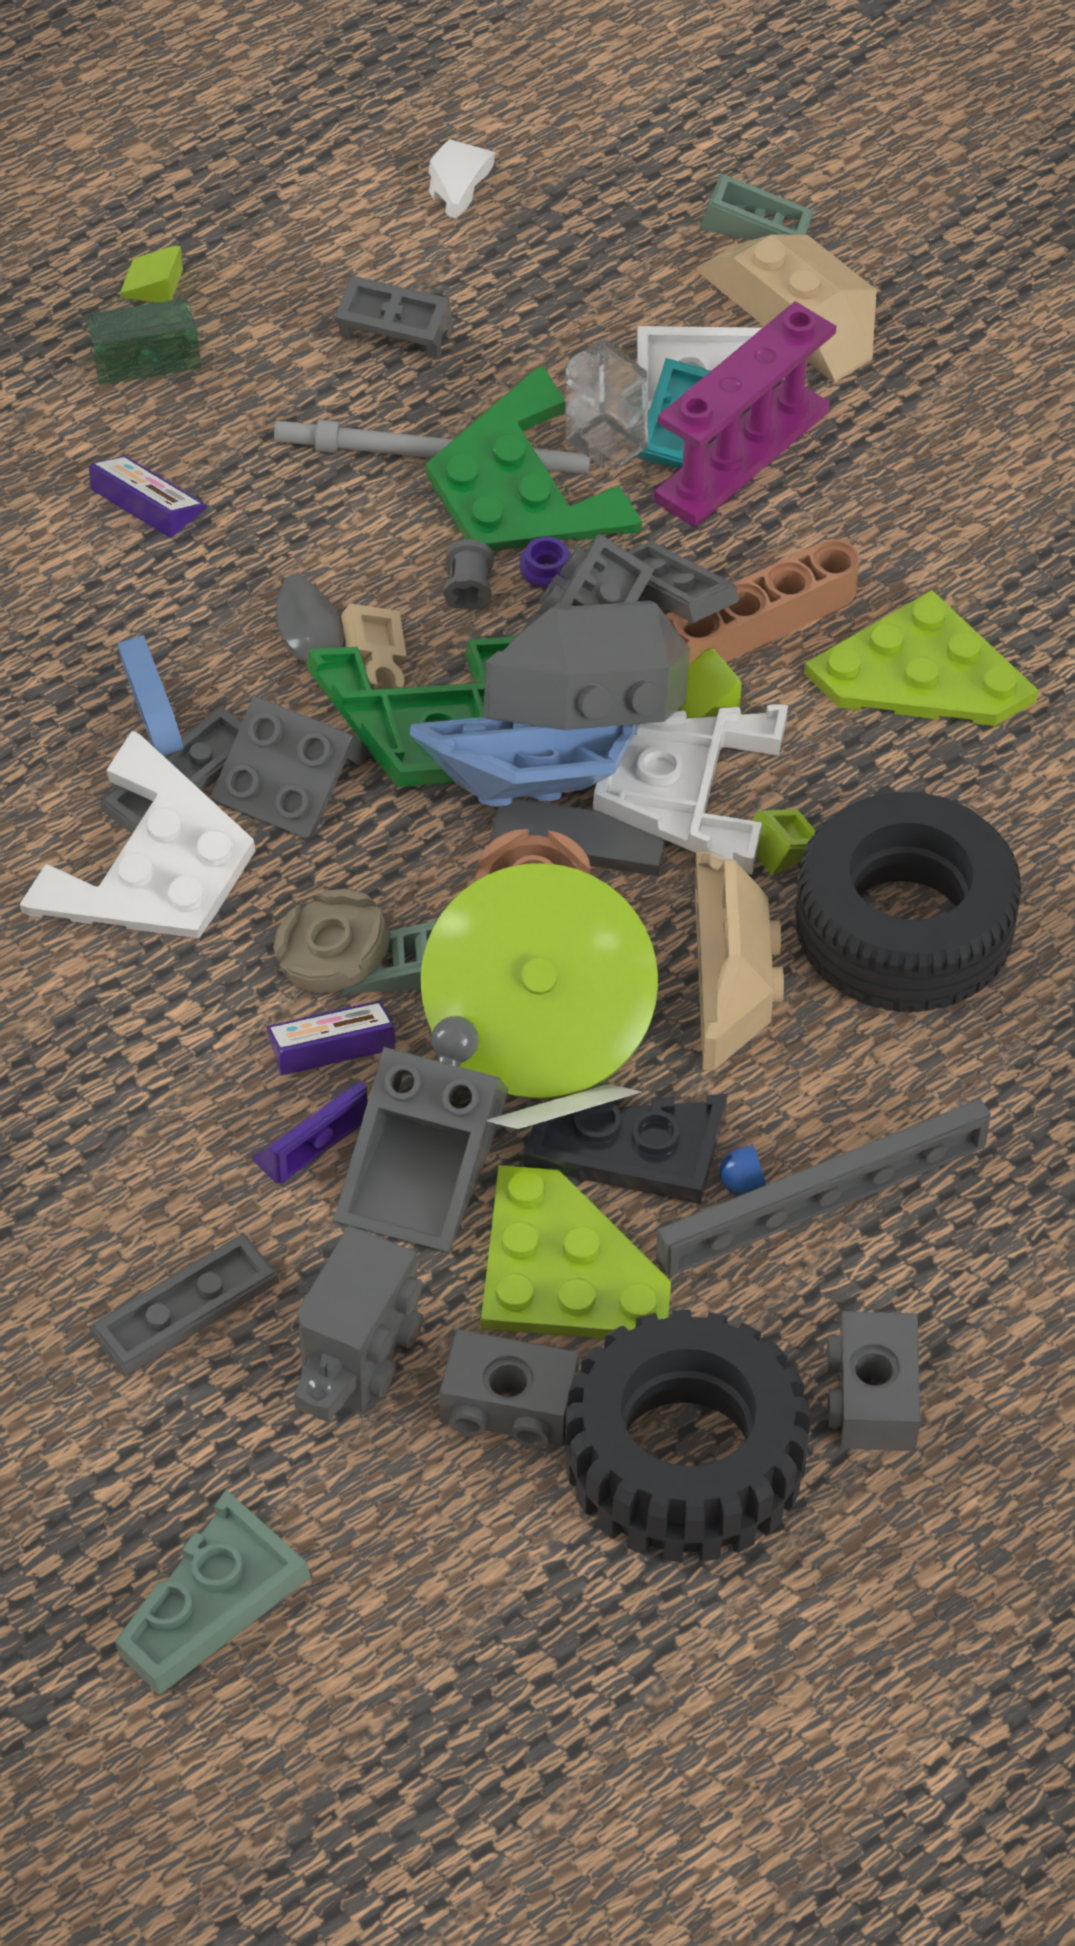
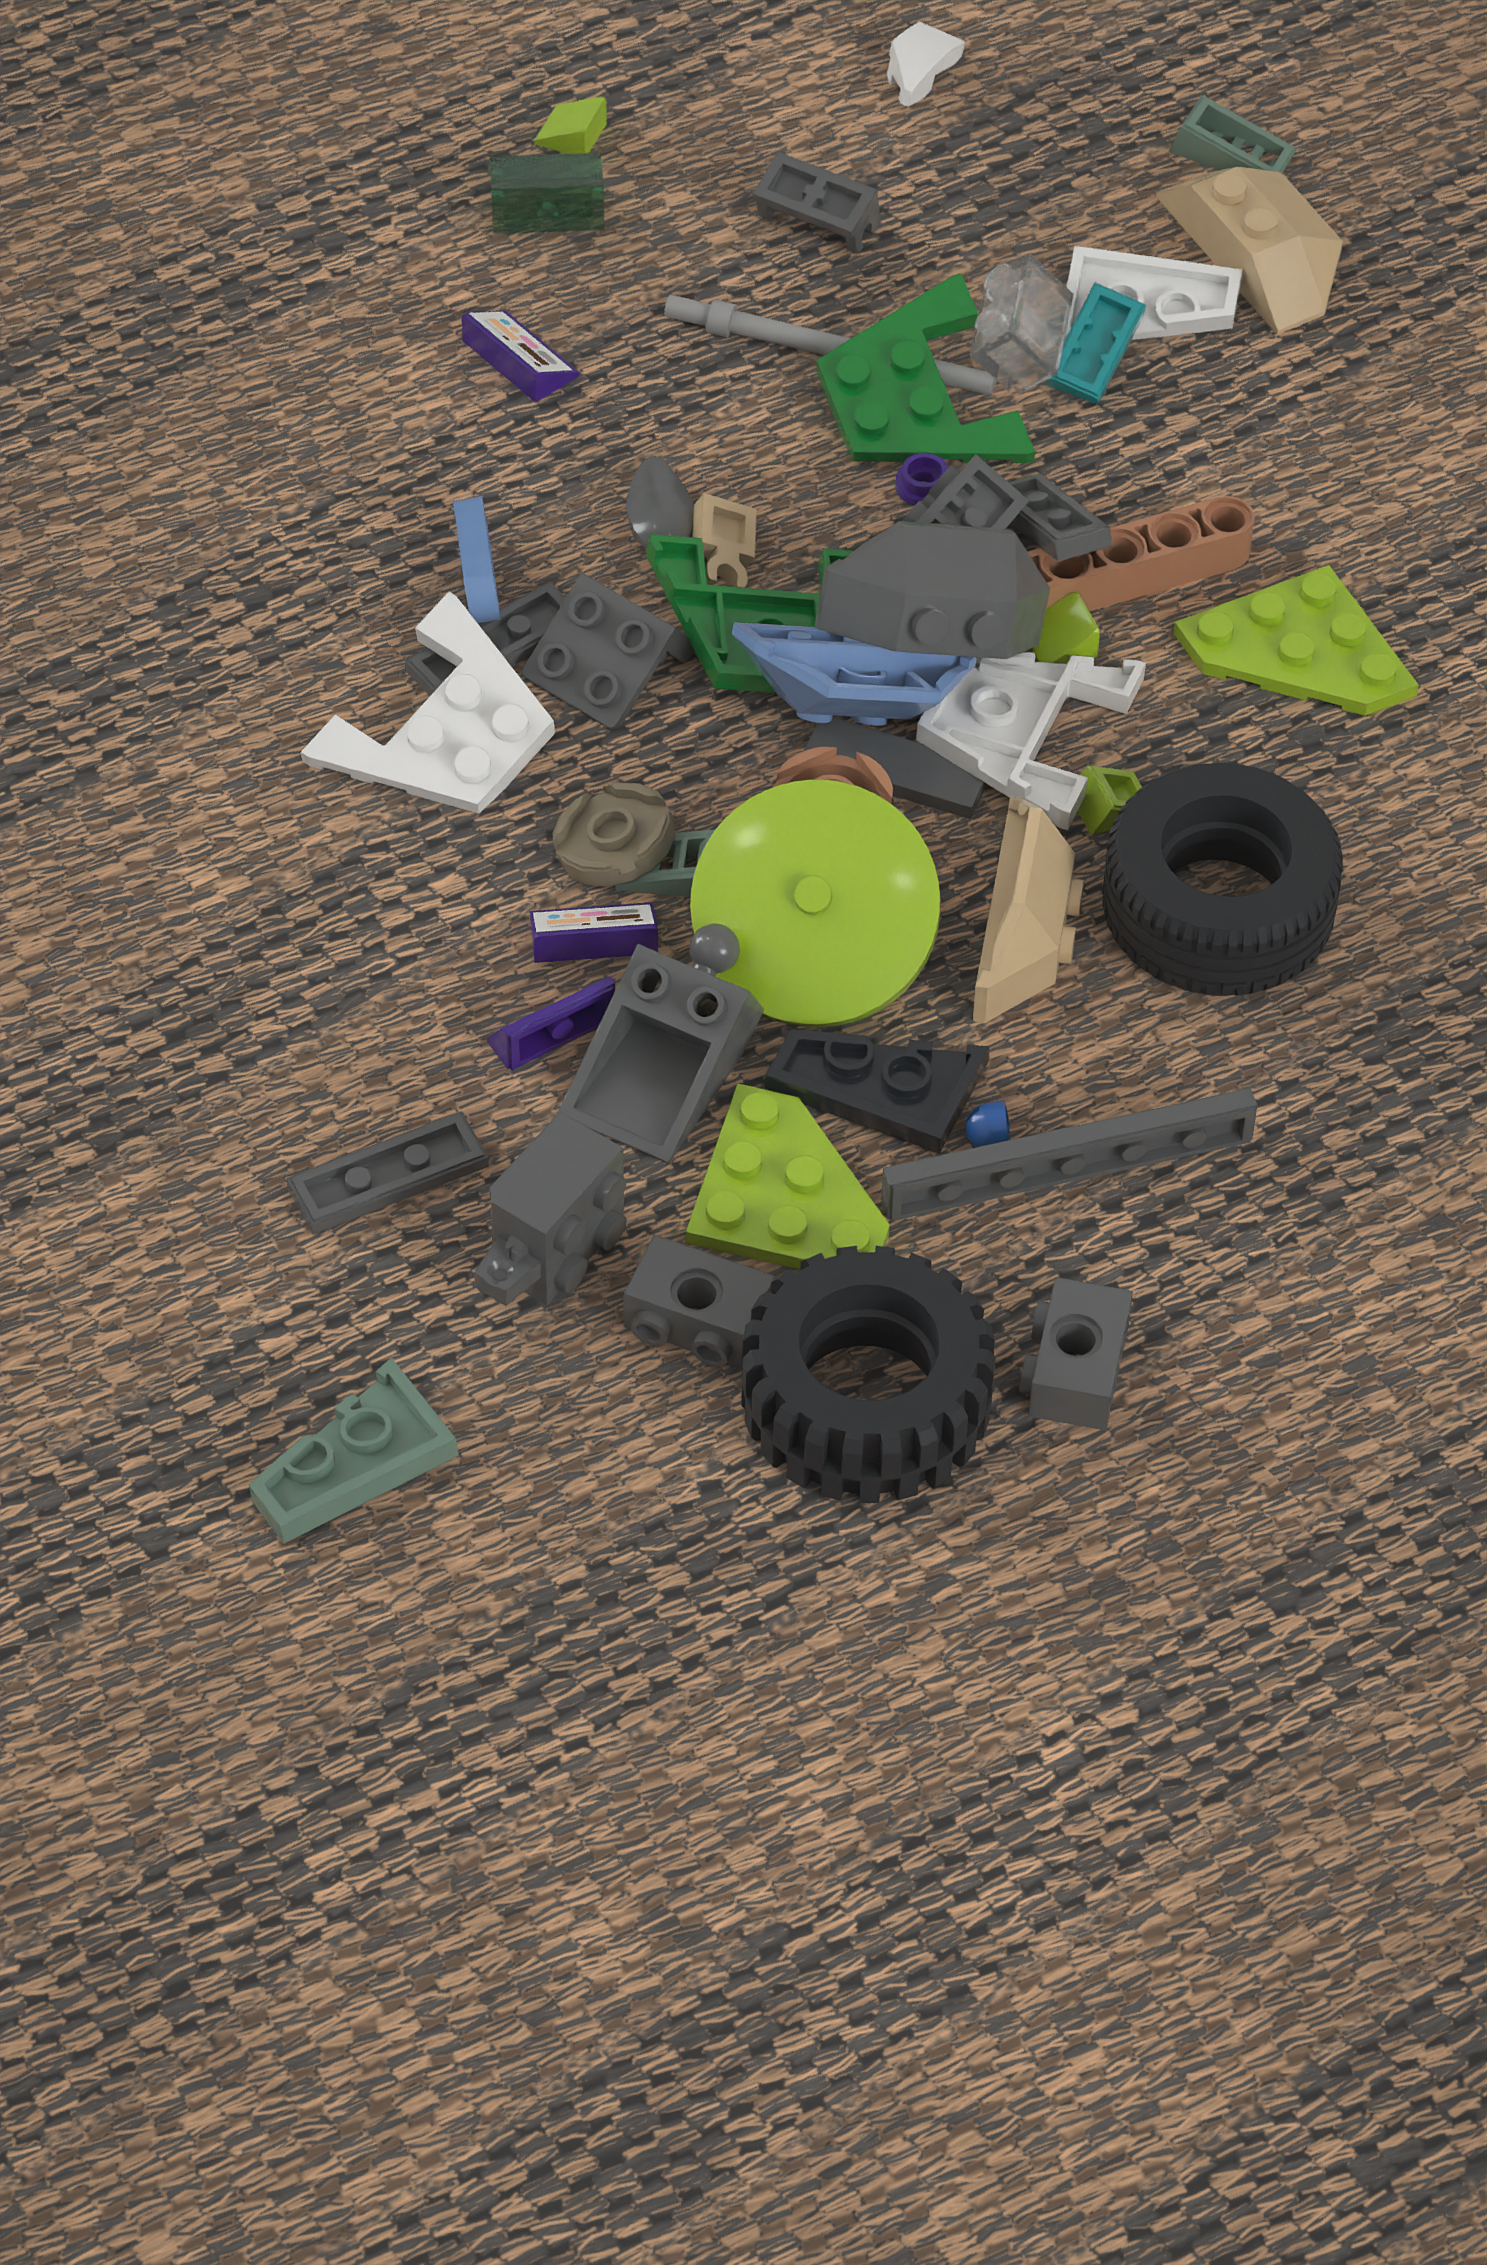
camera: 10 degrees right, 0 degrees up
(469, 568) = (840, 474): dark grey bush -> none
(563, 1106) = (814, 1032): white sticker -> none
(762, 433) = (1178, 381): magenta fence -> none

